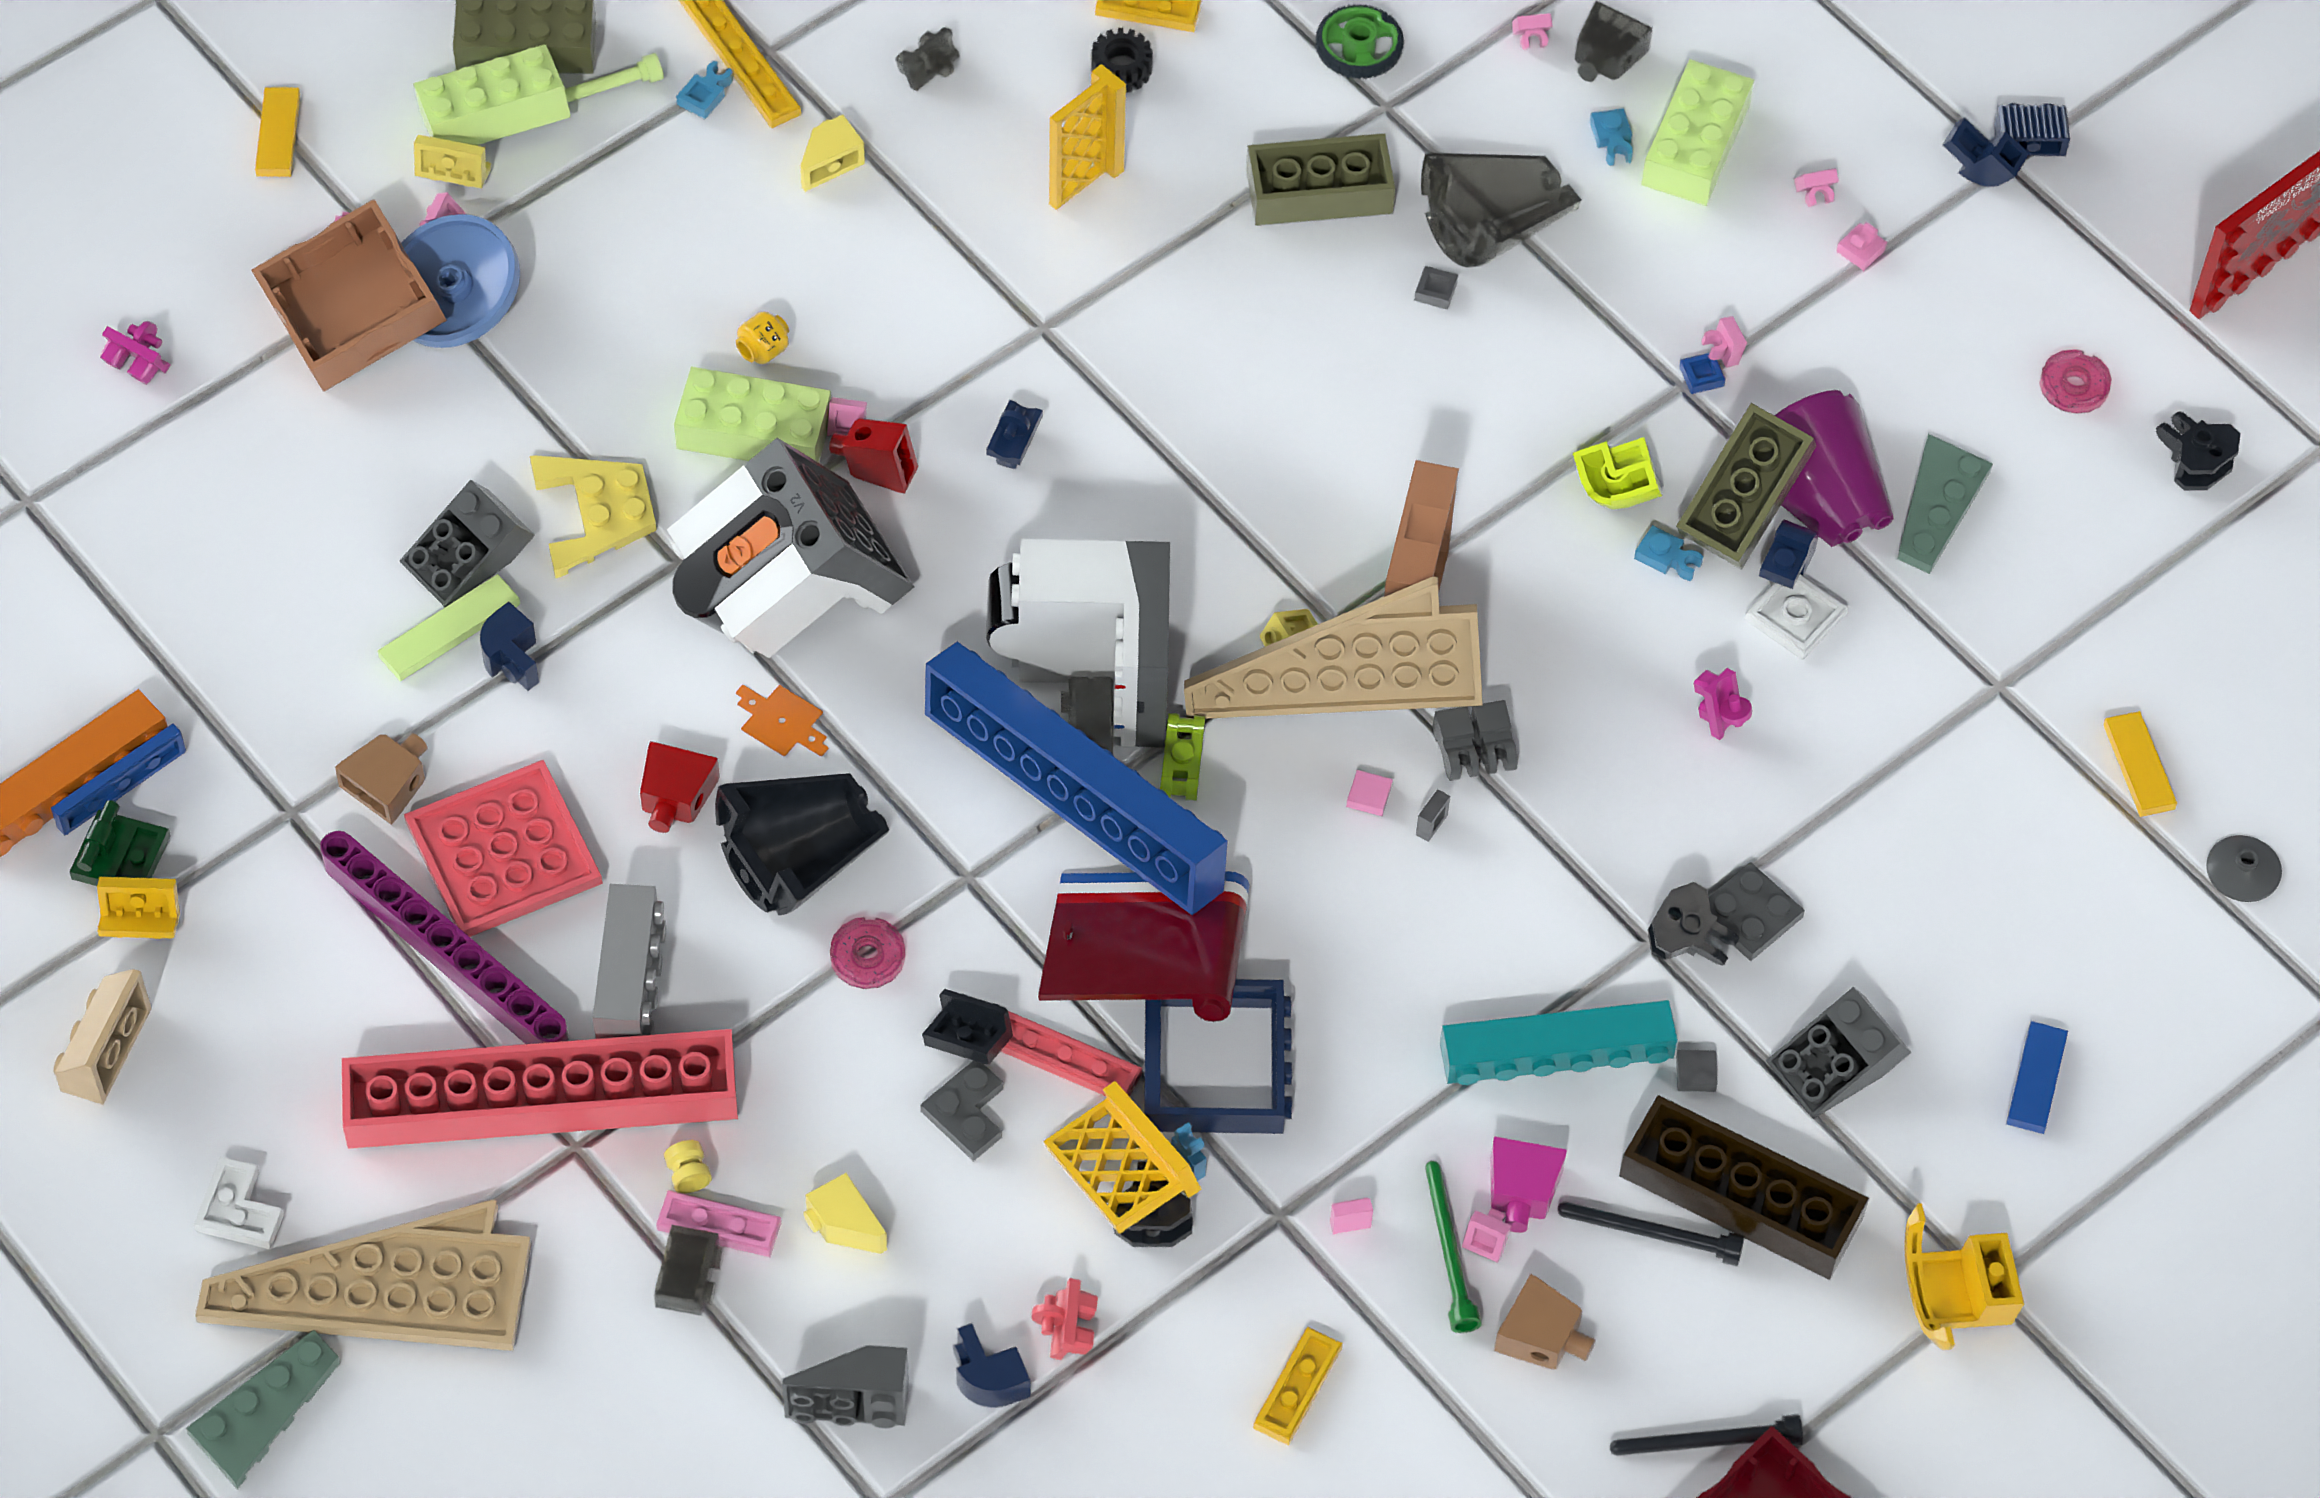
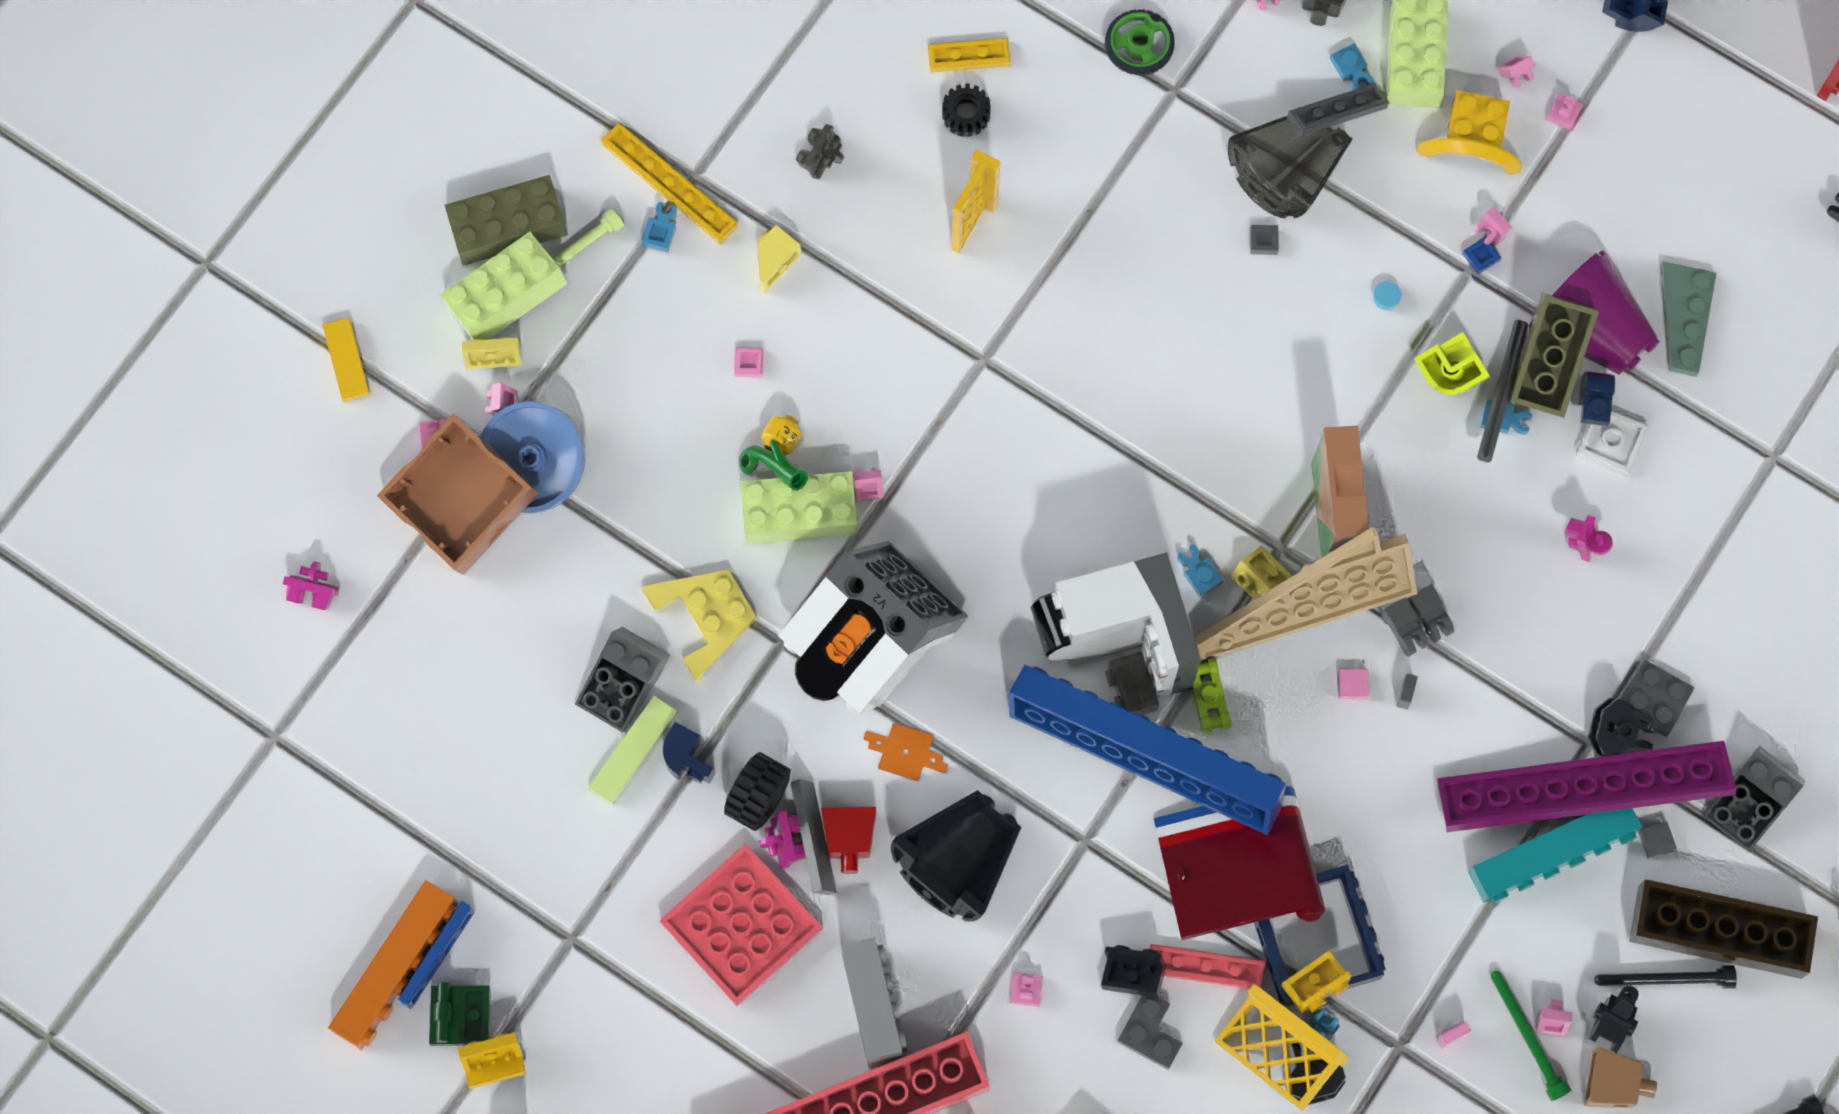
camera: 15 degrees left, 15 degrees up
(384, 774) = (632, 890): medium nougat torso -> none
(436, 930) = (717, 1007): magenta beam -> none
(577, 699) = (757, 791): none -> black tyre
(596, 757) = (780, 840): none -> dark pink hips
(630, 759) = (813, 837): none -> dark grey tile
(752, 368) = (791, 474): none -> green plant
(756, 257) = (749, 362): none -> bright pink tile
(828, 1019) = (1026, 989): none -> bright pink tile
(873, 971) = (1035, 943): clear pink tile -> none
(878, 453) = (901, 511): red torso -> none
(1013, 434) = (997, 462): dark blue hips -> none
(1192, 1095) = (1316, 982): none -> yellow bracket
(1222, 623) = (1201, 574): none -> dark azure plate
(1320, 179) = (1152, 175): olive brick -> none
(1524, 1179) = (1565, 969): dark pink torso -> none
(1565, 1246) = (1616, 1018): none -> black hinge
(1567, 385) = (1387, 295): none -> medium azure tile
(1575, 166) = (1337, 109): none -> dark grey tile
(1620, 973) = (1586, 786): none -> magenta plate
(1661, 529) = (1502, 391): none -> dark grey axle
(1742, 228) = (1475, 130): none -> yellow piece
(2072, 397) = (1746, 195): clear pink tile -> none

